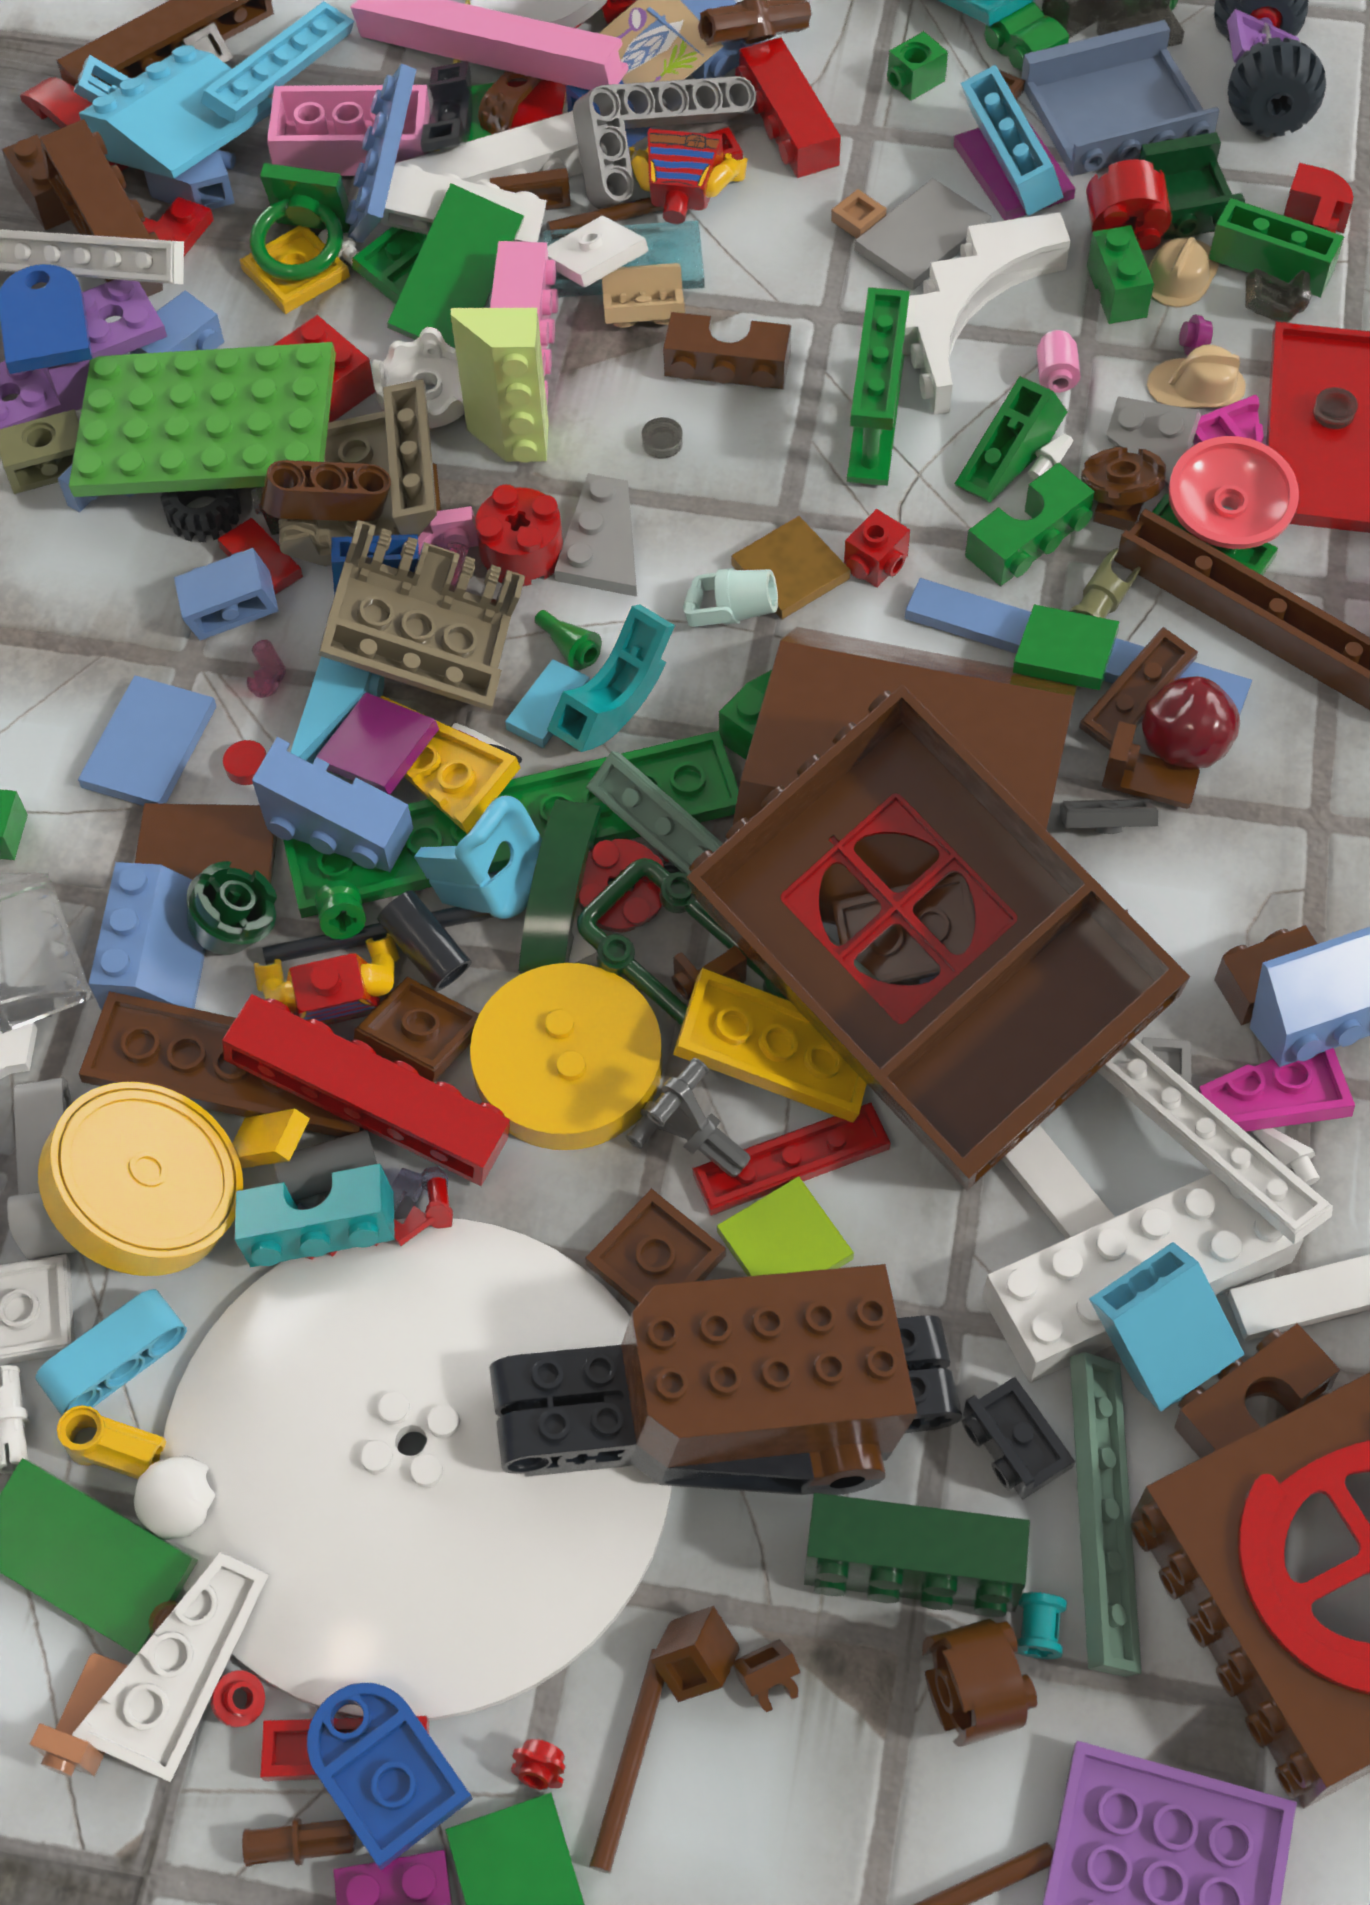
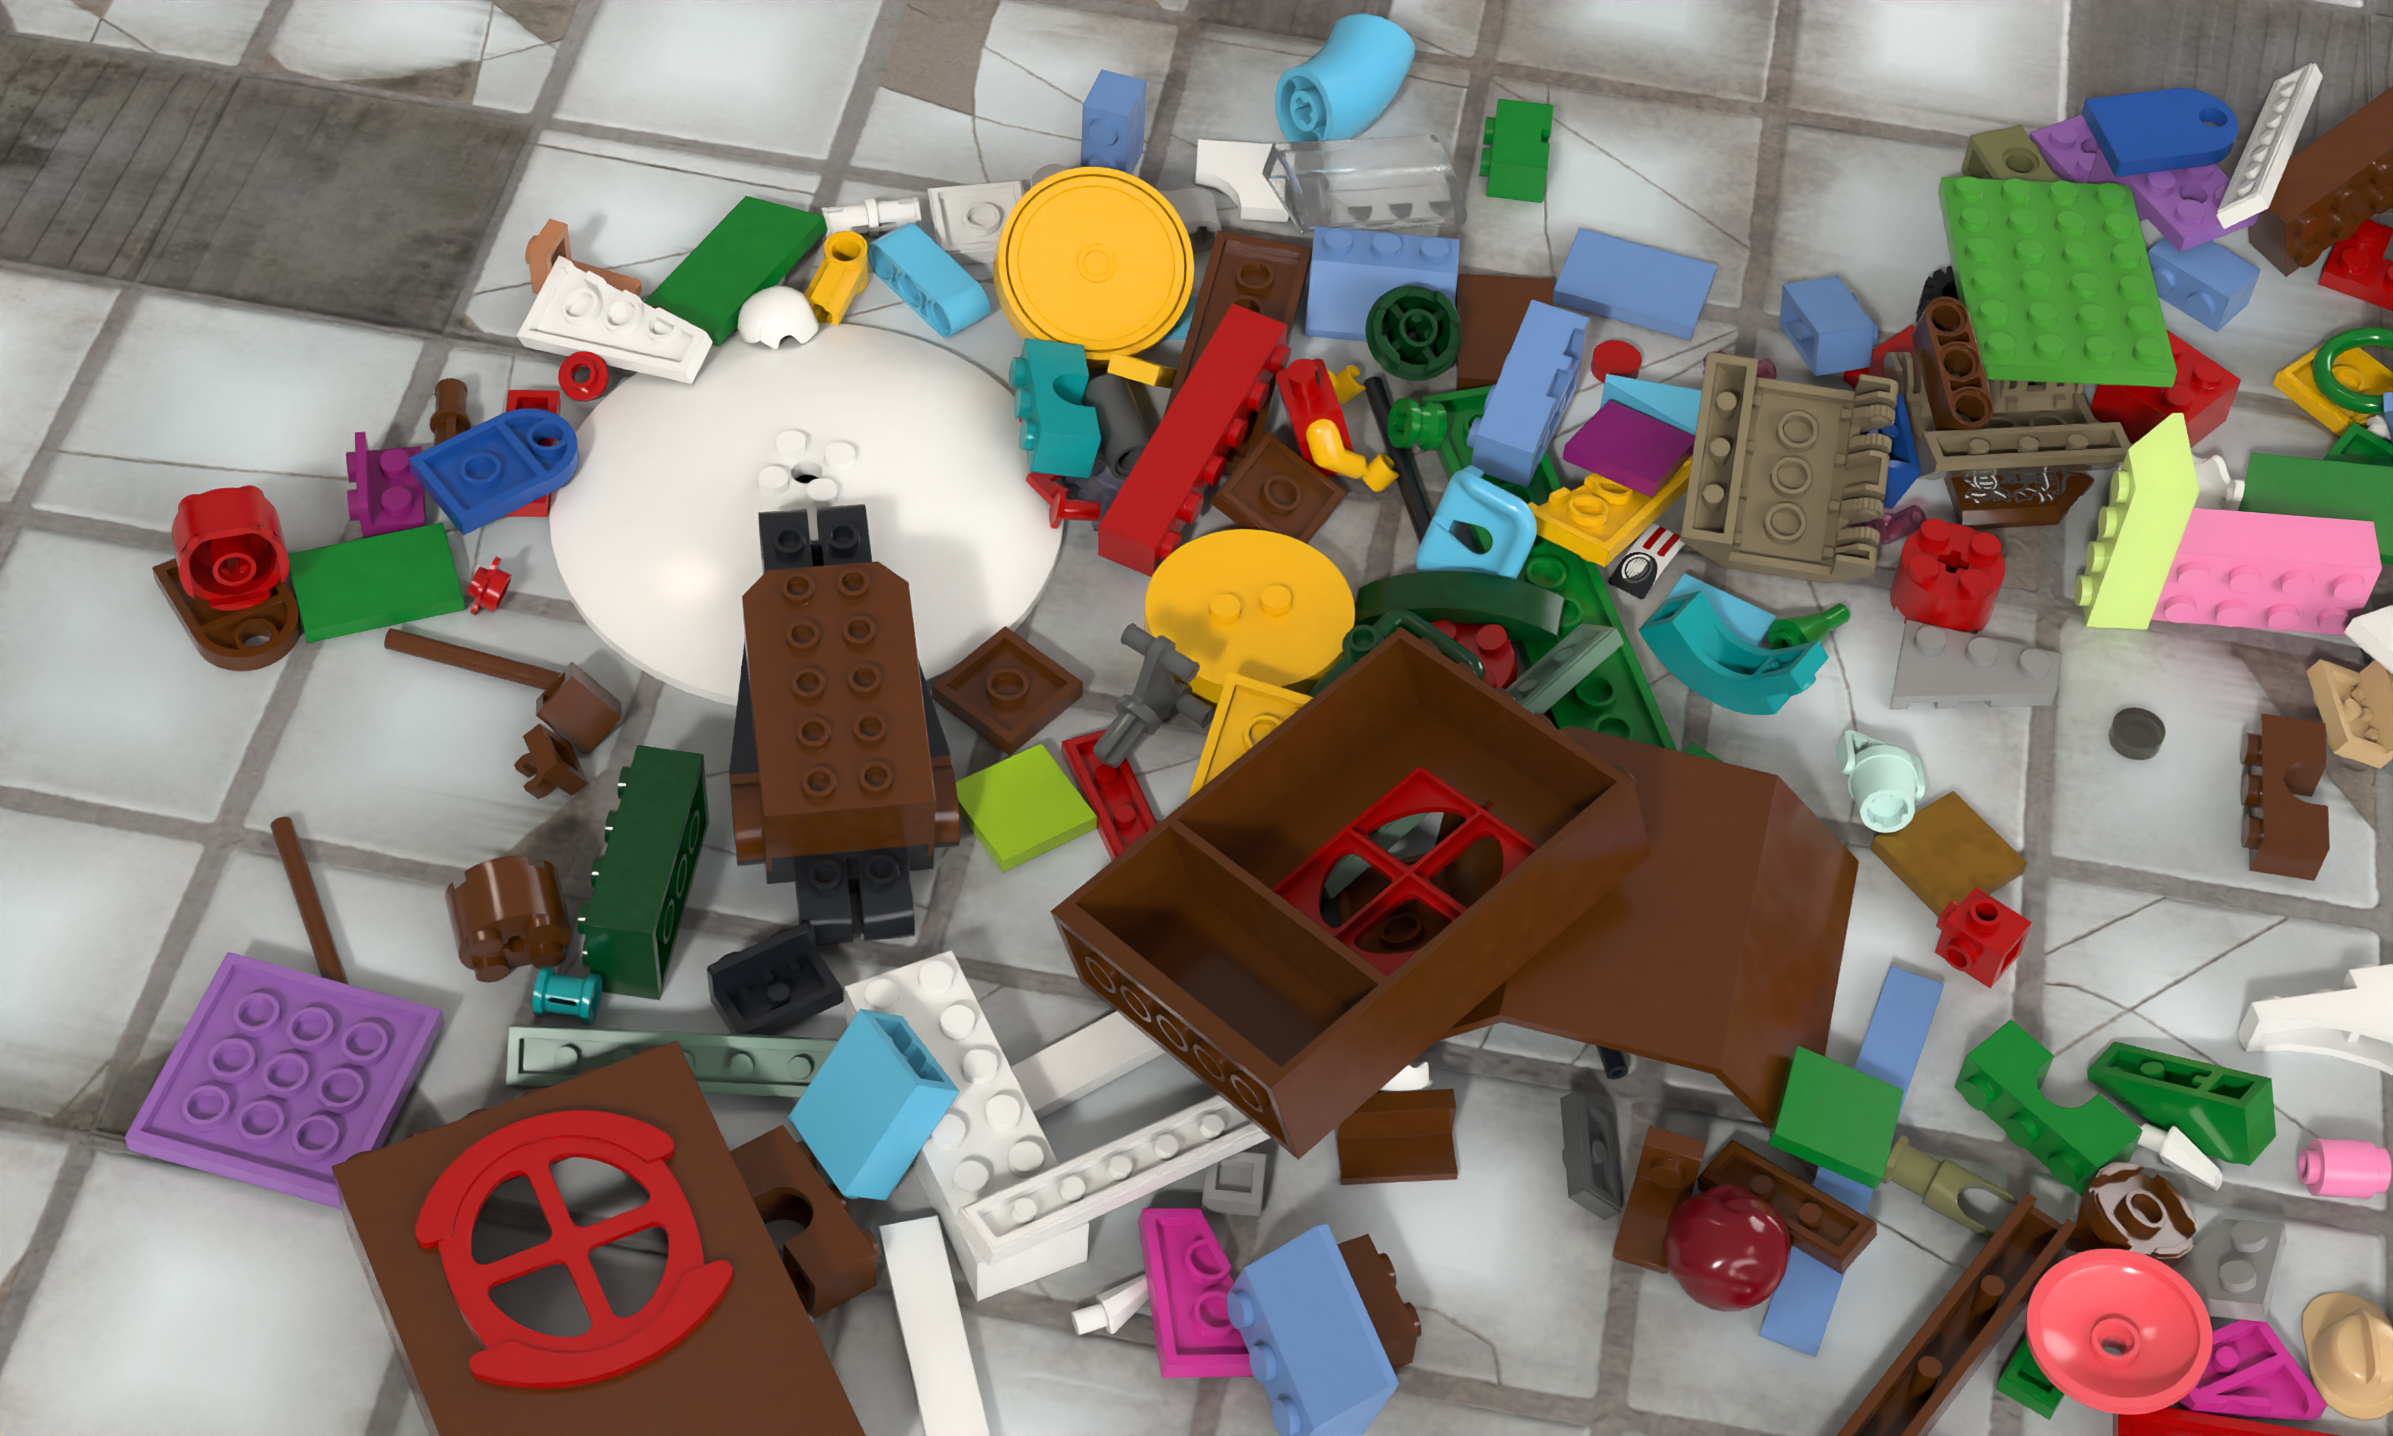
camera: 85 degrees right, 10 degrees down
(424, 940) = (1382, 494): black pin -> none
(450, 526) = (1944, 504): bright pink plate -> none
(877, 386) = (2232, 889): green fence -> none

